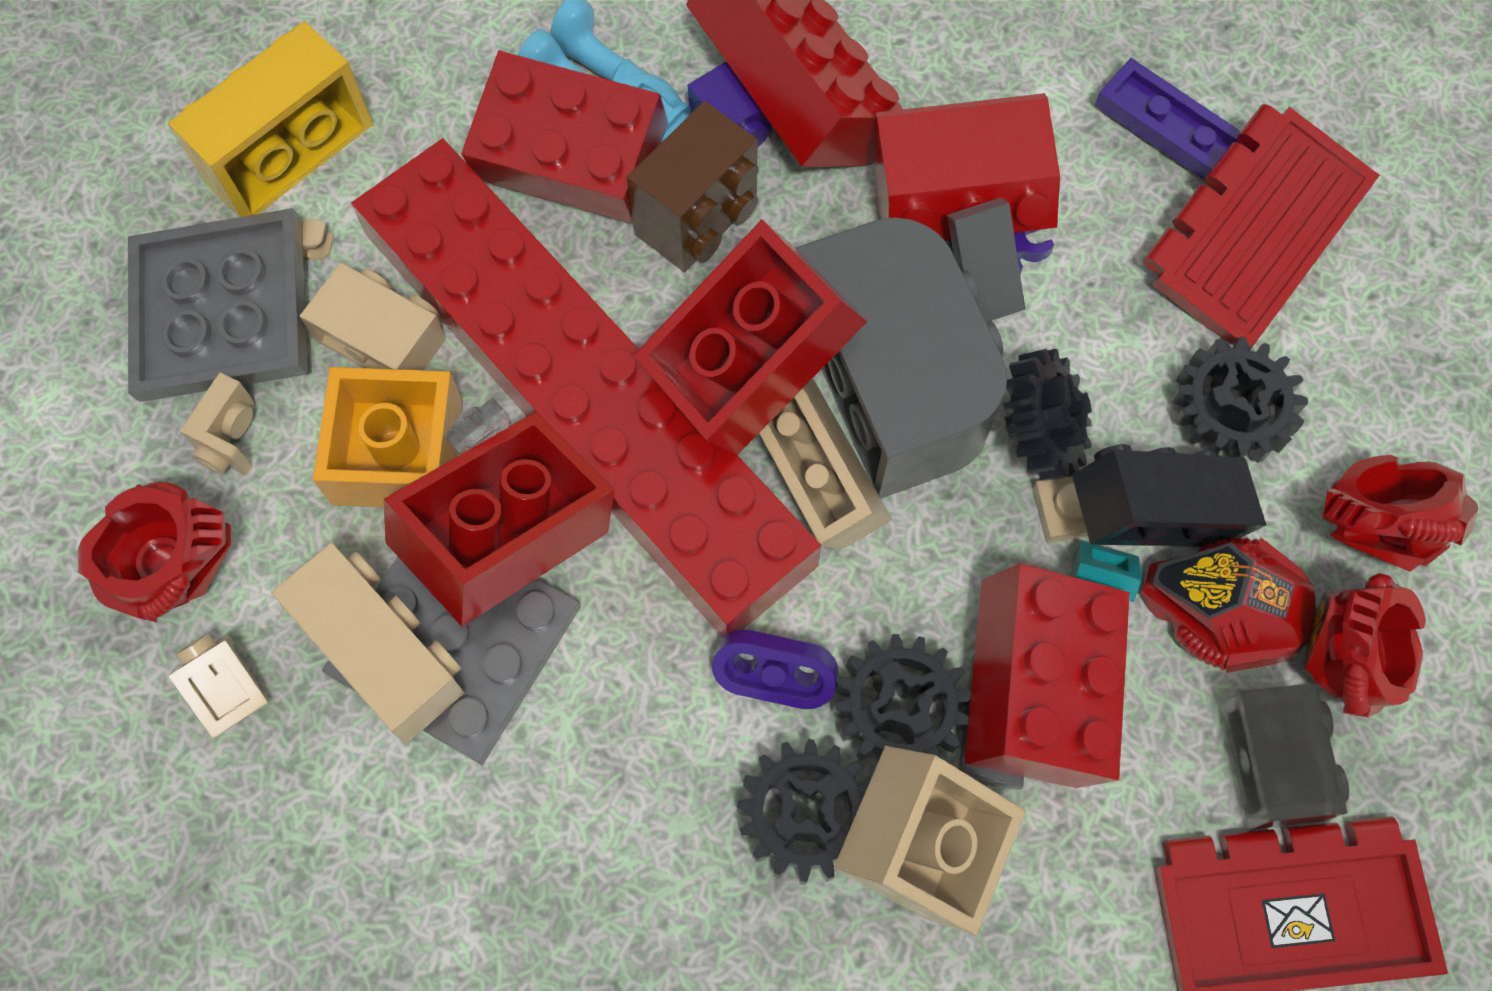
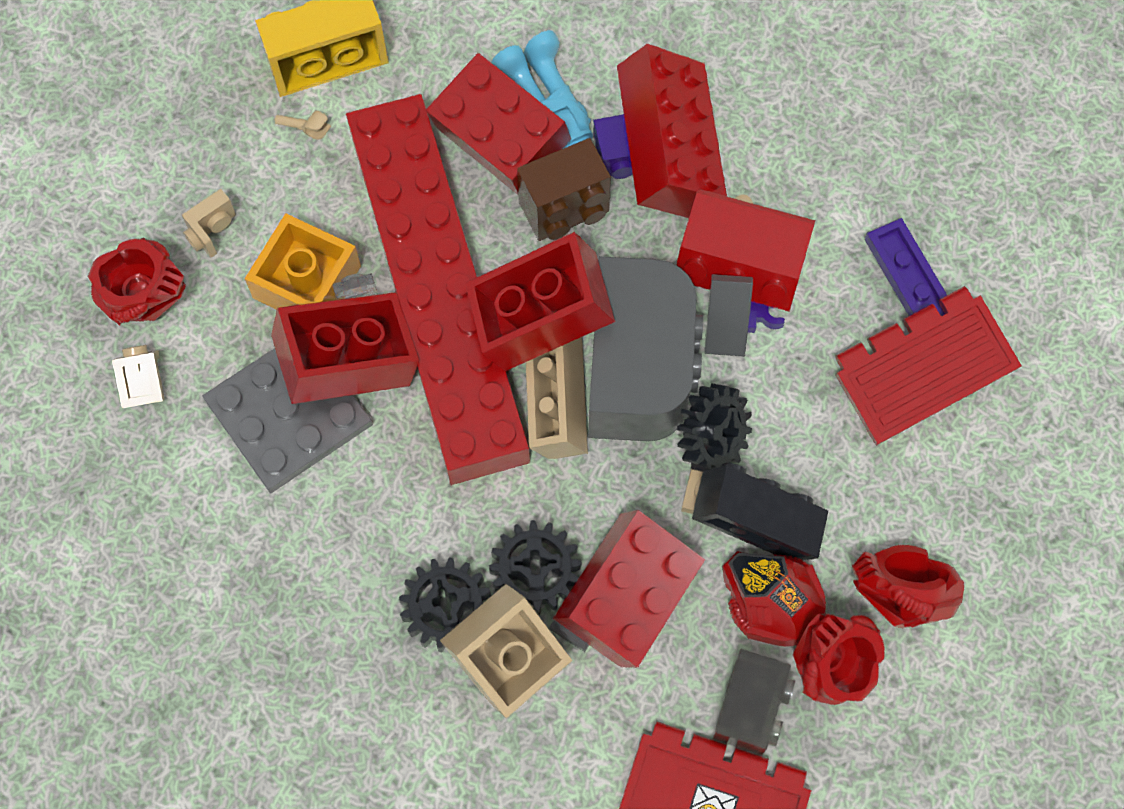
camera: 25 degrees right, 0 degrees up
(216, 303) = (239, 143): flat silver plate -> none
(371, 323) = (326, 195): tan brick -> none
(371, 641) = (235, 390): tan brick -> none
(775, 670) = (470, 514): dark purple plate -> none
(1107, 567) = (706, 542): teal plate -> none
(1238, 404) = (833, 473): black gear -> none

